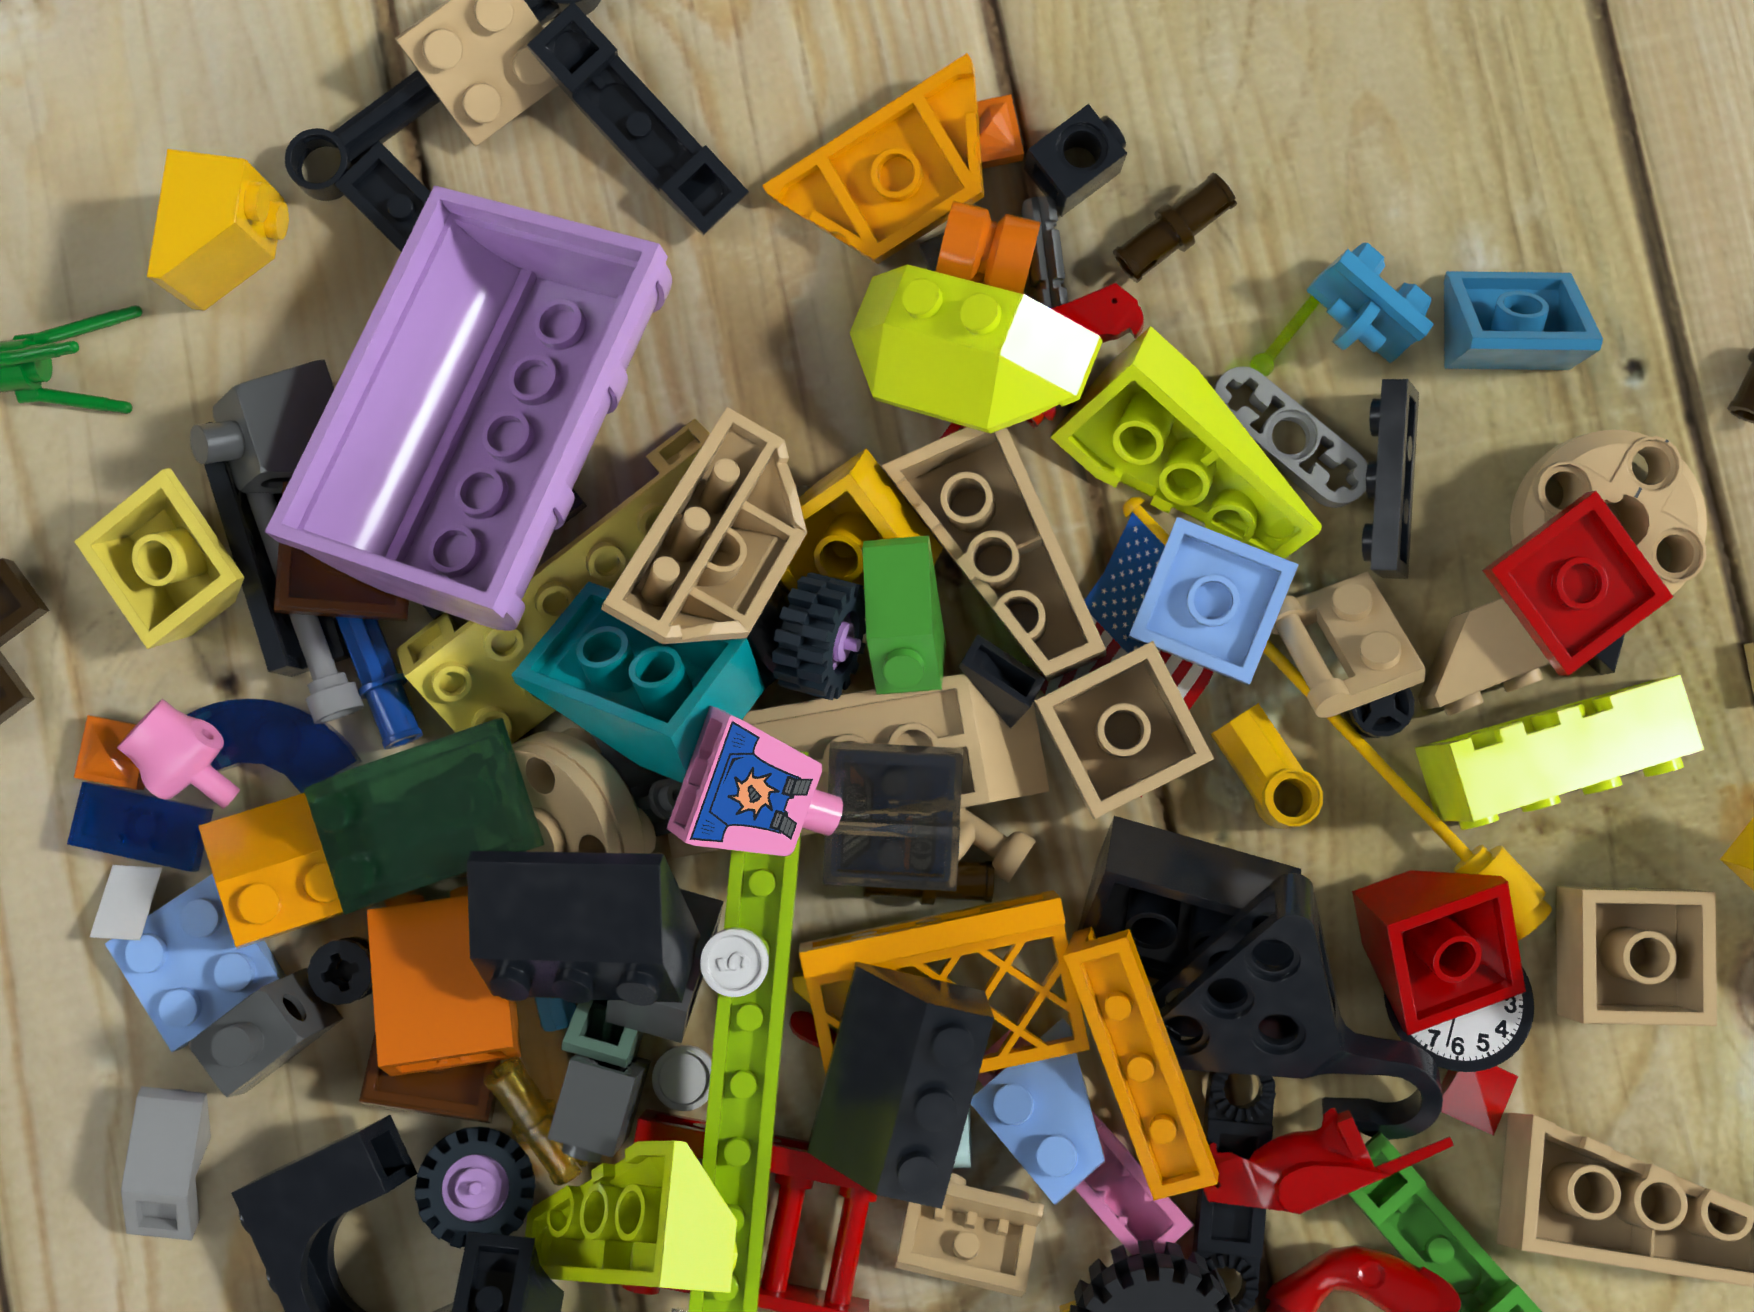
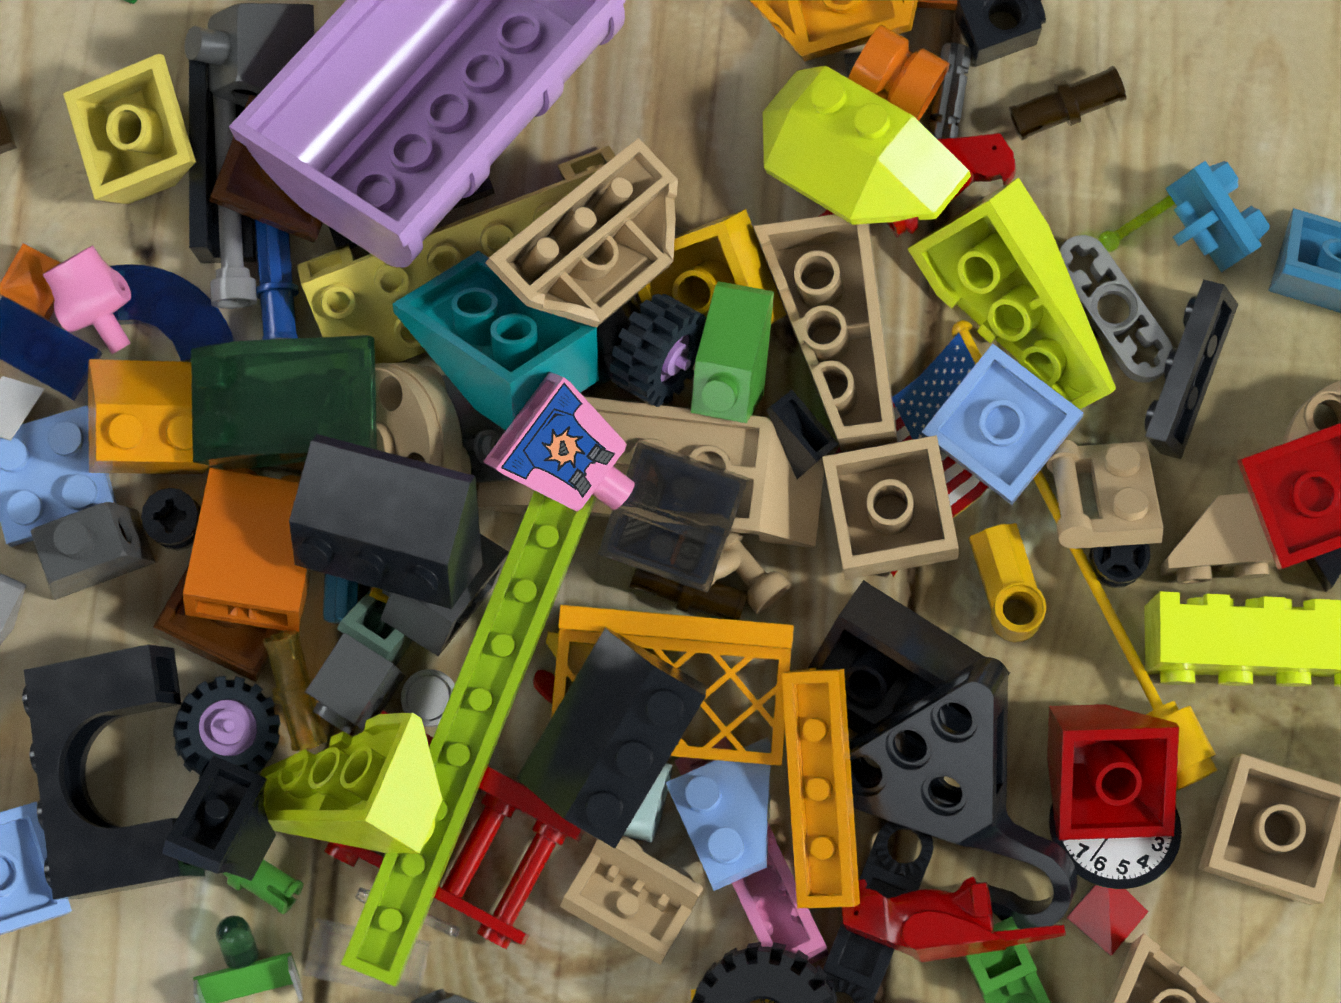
camera: 20 degrees right, 5 degrees down
(734, 962) = (504, 593): white piece -> none

